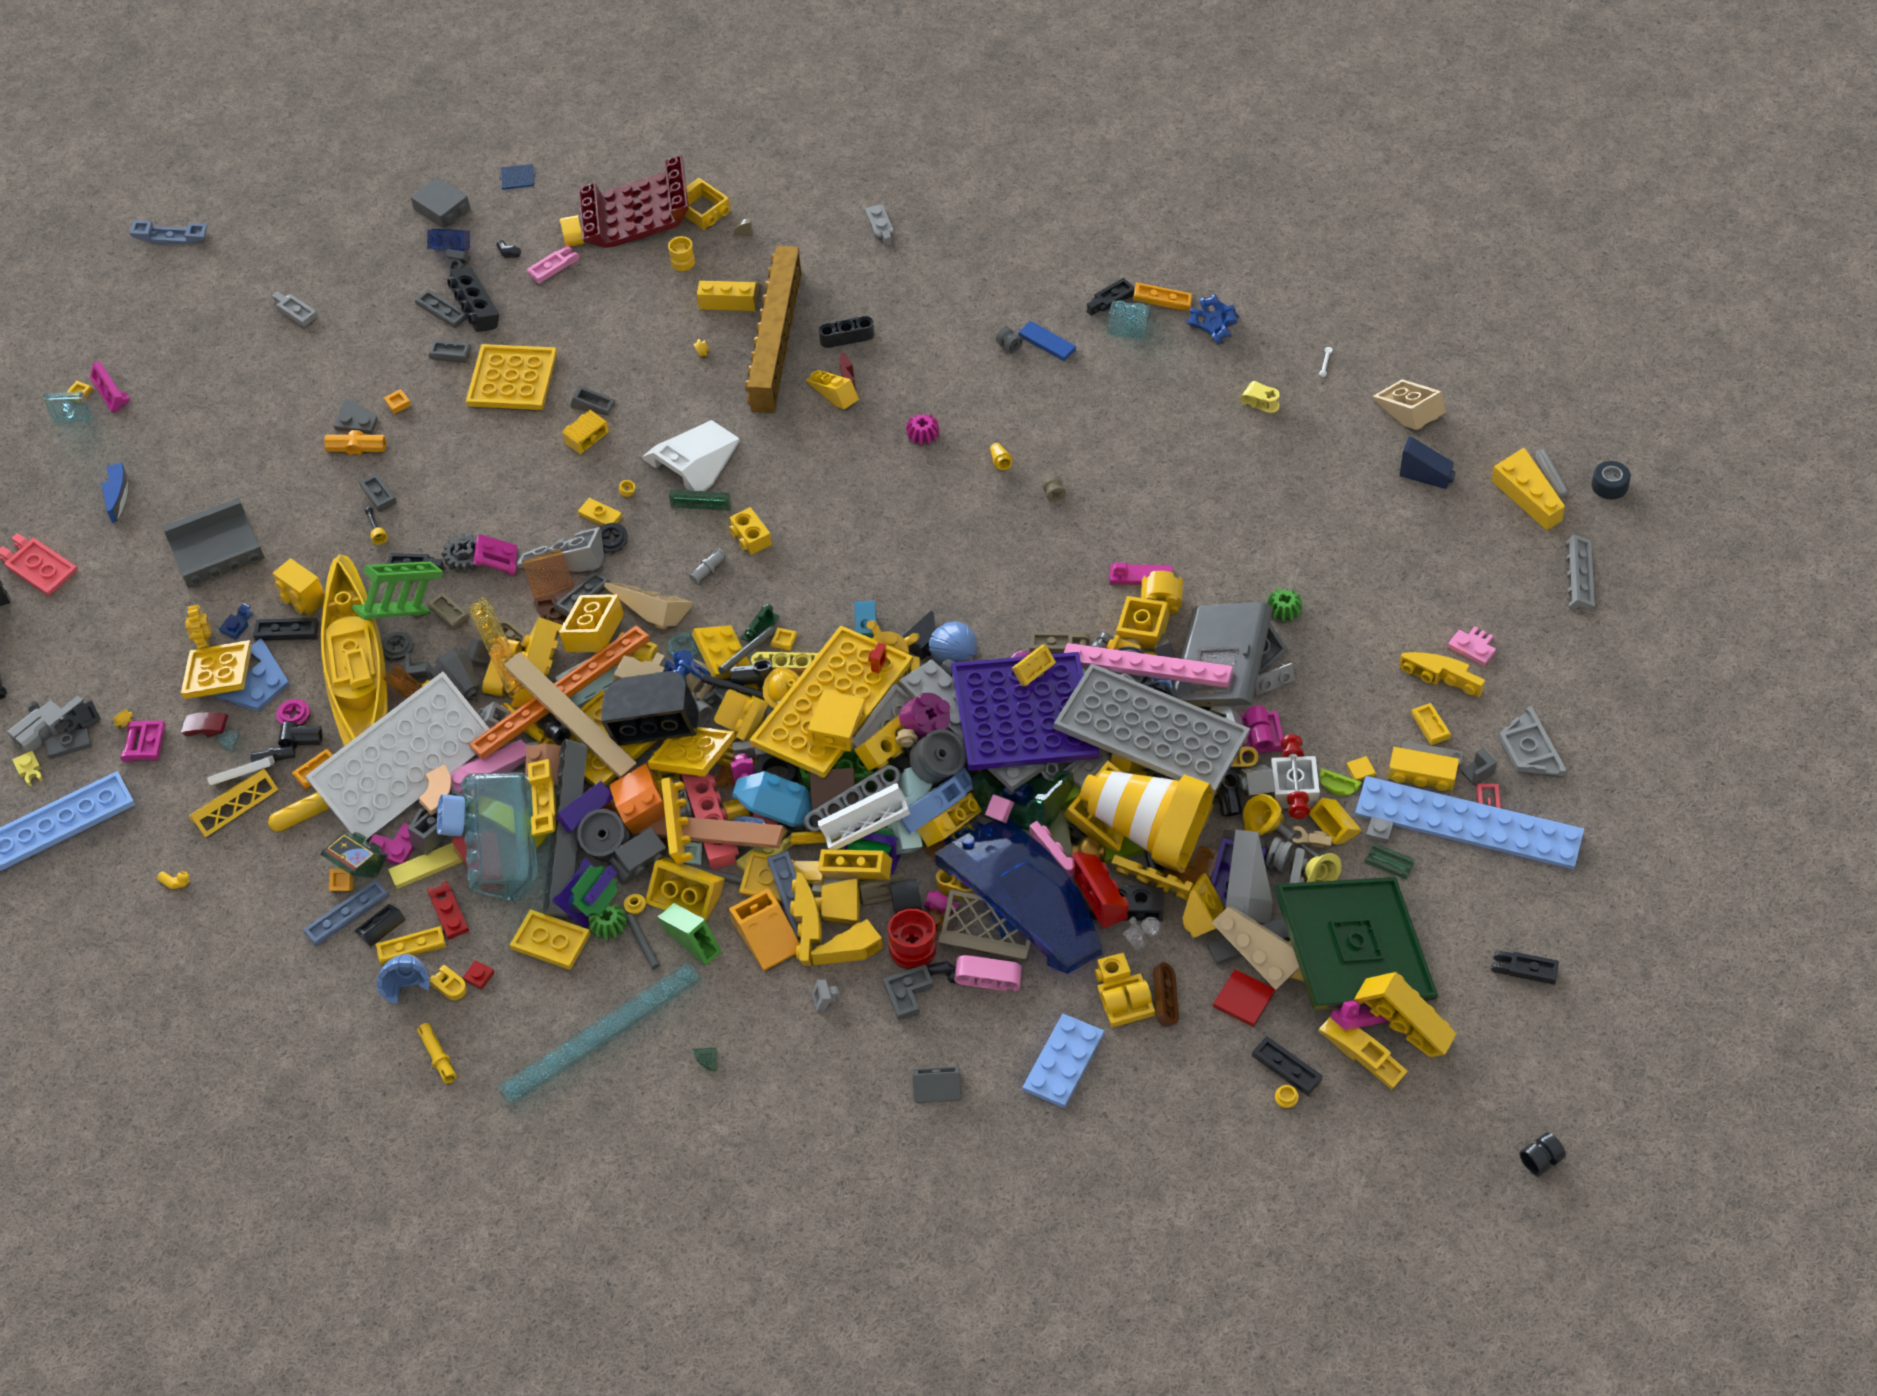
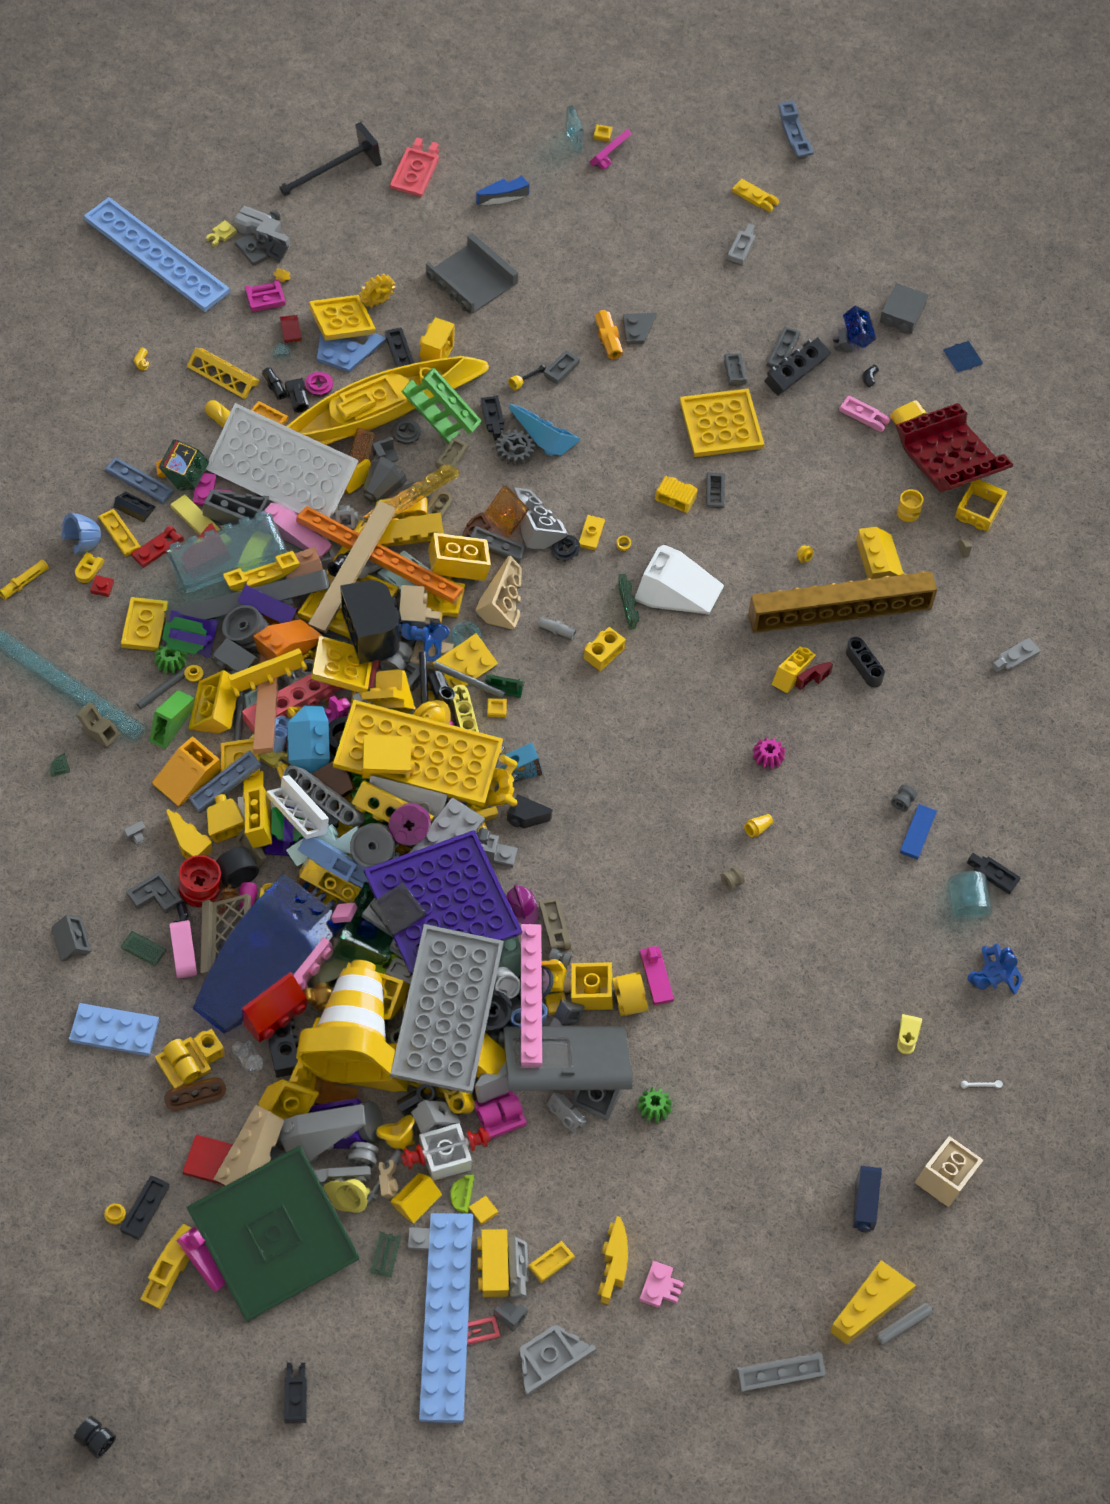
camera: 65 degrees right, 5 degrees up
(234, 285) = (755, 195): none -> yellow hinge
(236, 625) = (397, 316): clear blue plate -> none
(241, 770) = (250, 366): white tile -> none
(397, 401) = (665, 349): light orange plate -> none
(439, 783) = (254, 498): light nougat tile -> none
(450, 815) = (228, 513): light blue beam -> none
(465, 520) = (546, 436): none -> dark azure wedge
(495, 554) = (522, 467): dark pink plate -> none
(674, 1007) = (97, 727): none -> dark tan brick
(805, 911) = (205, 794): yellow slope -> none
(878, 657) = (467, 773): red plate -> none
(906, 738) = (383, 815): tan plate -> none
(953, 642) = (521, 838): medium blue hair -> none
(971, 1015) = (143, 948): none -> clear green tile
(1026, 745) = (398, 909): none -> clear smoke tile
(1033, 665) = (487, 894): yellow plate -> none
(1162, 297) = (1009, 917): light orange tile -> none
(1407, 1013) = (204, 1290): yellow wedge -> none
(1611, 480) = (917, 1377): black wheel -> none

